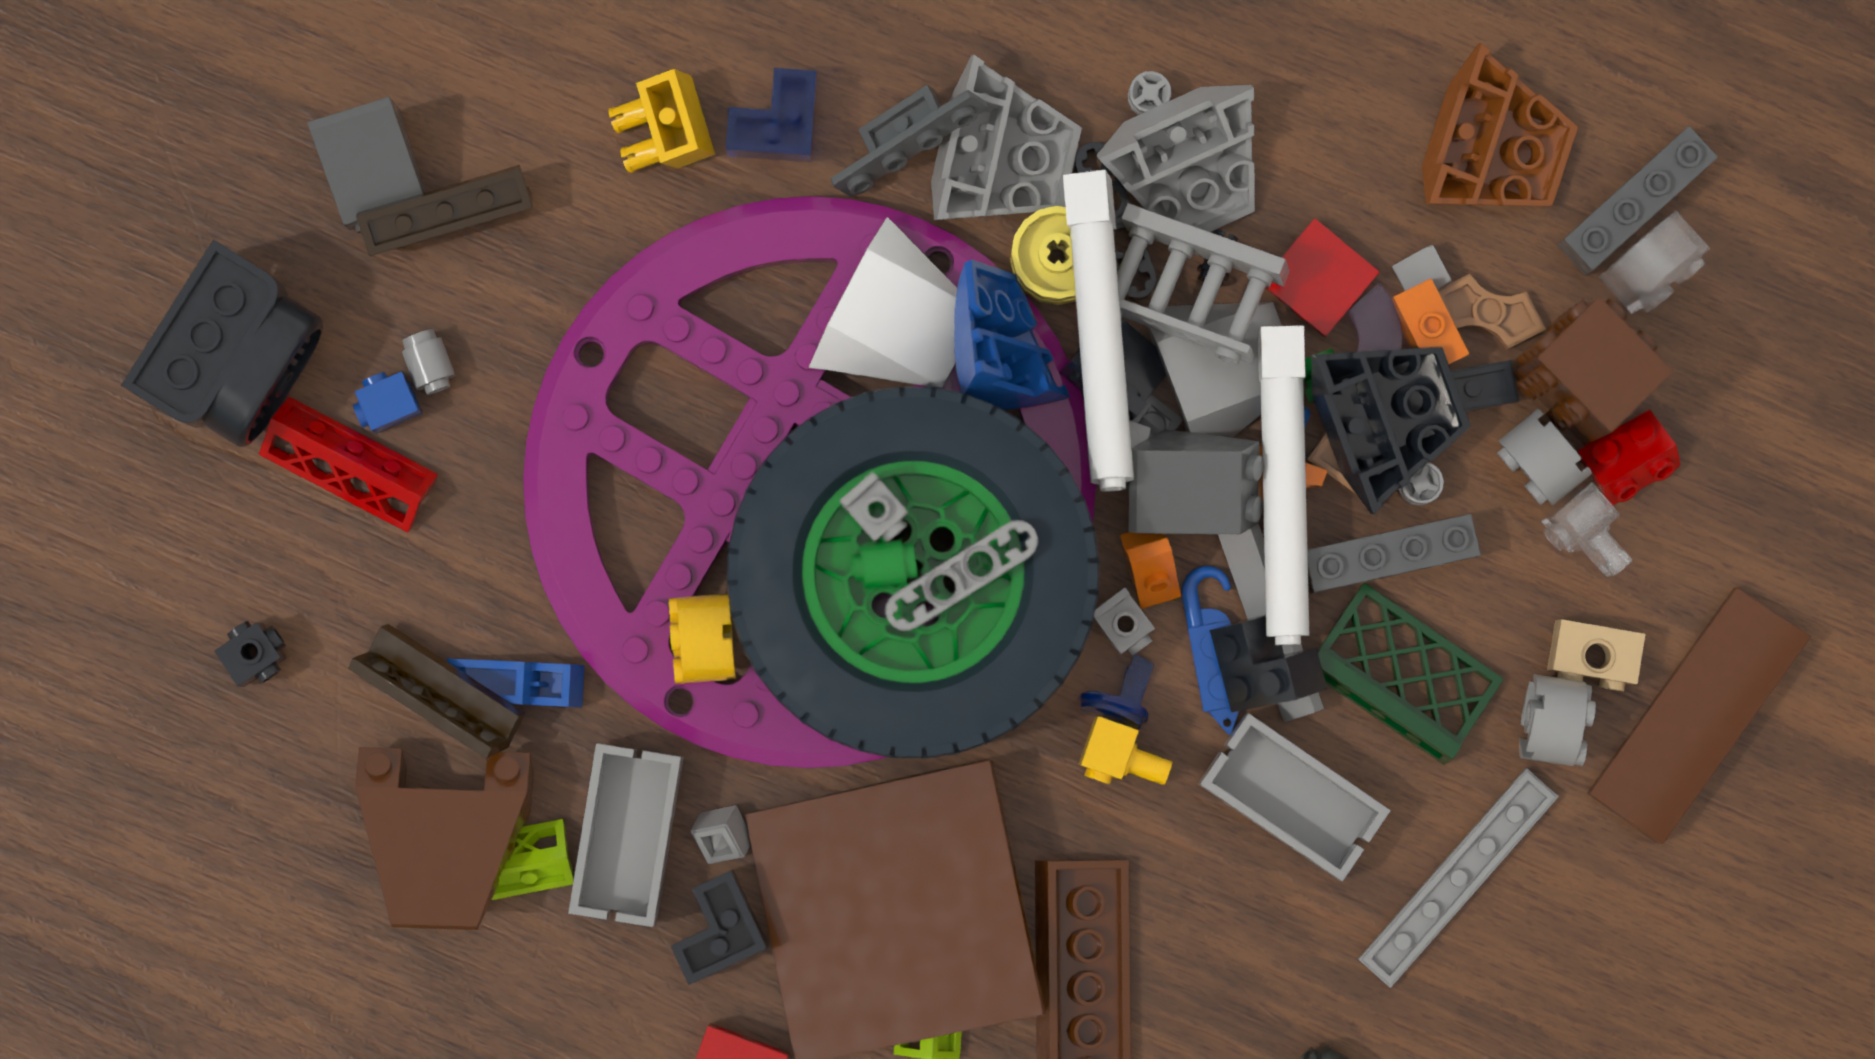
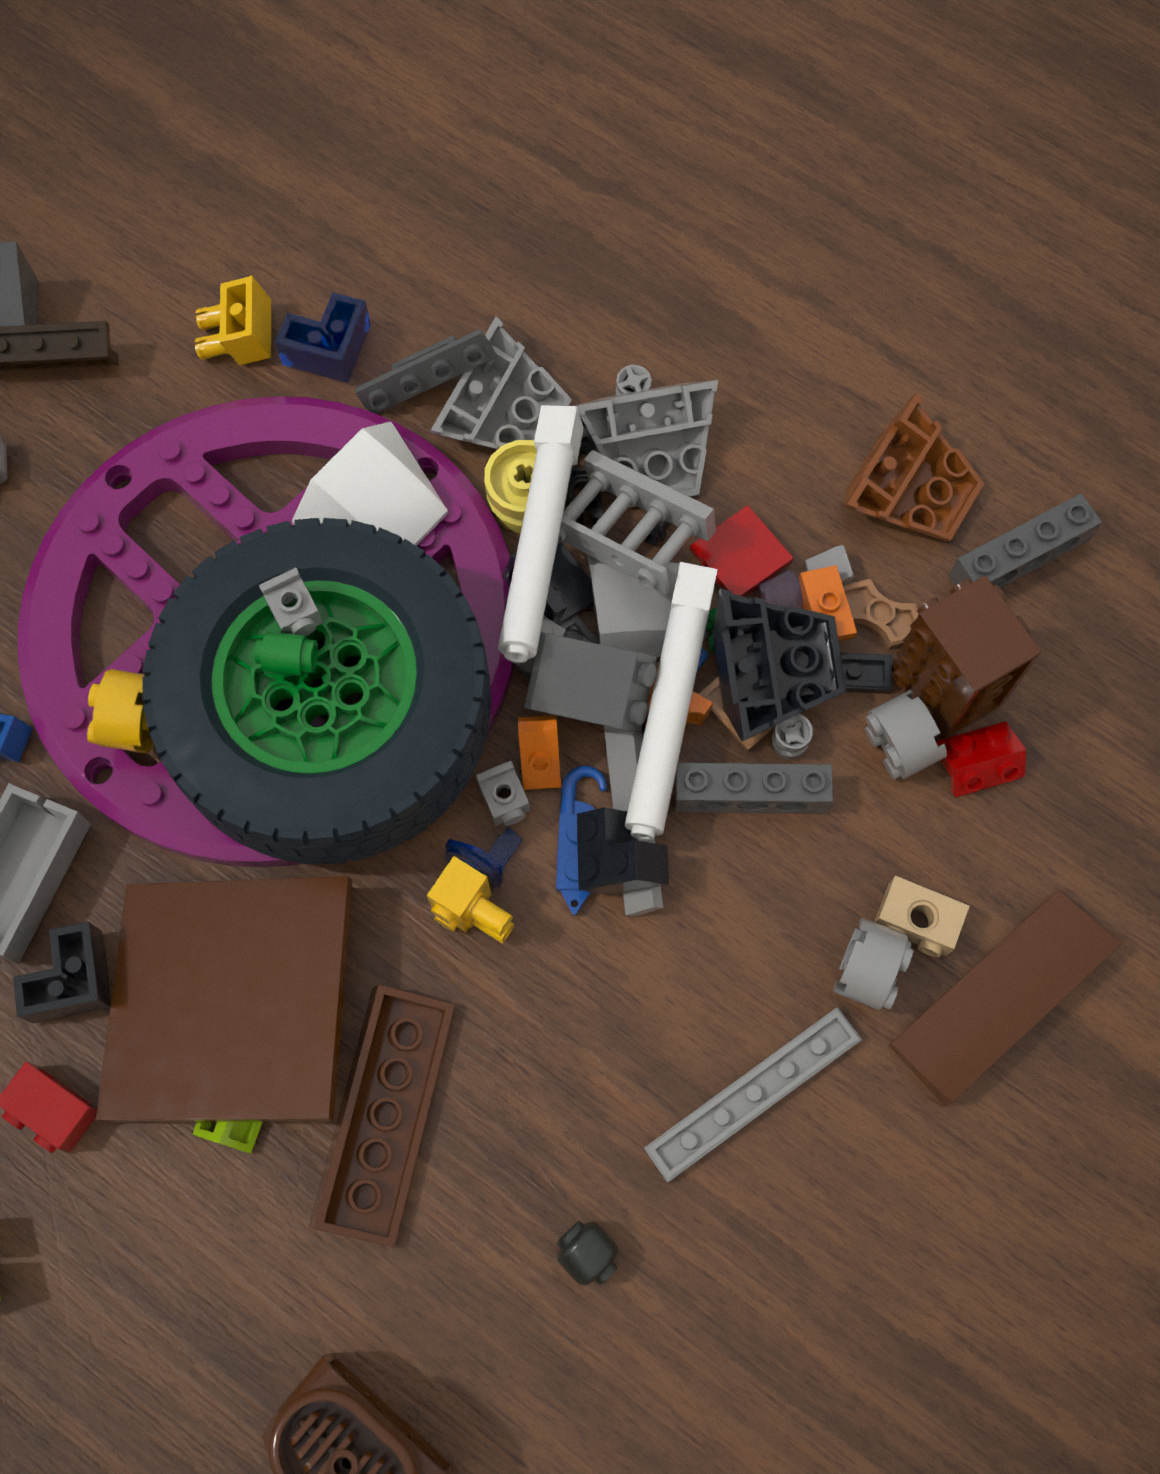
camera: 15 degrees right, 15 degrees down
(721, 834) = (100, 897): light grey slope -> none
(963, 578) = (350, 674): light grey beam -> none
(996, 342) = (453, 524): blue wedge -> none
(1293, 797) = (617, 979): light grey piece -> none
(1394, 709) = (725, 924): dark green fence -> none
(1583, 525) = (928, 799): clear brick -> none
(1649, 267) = (1042, 589): clear brick -> none

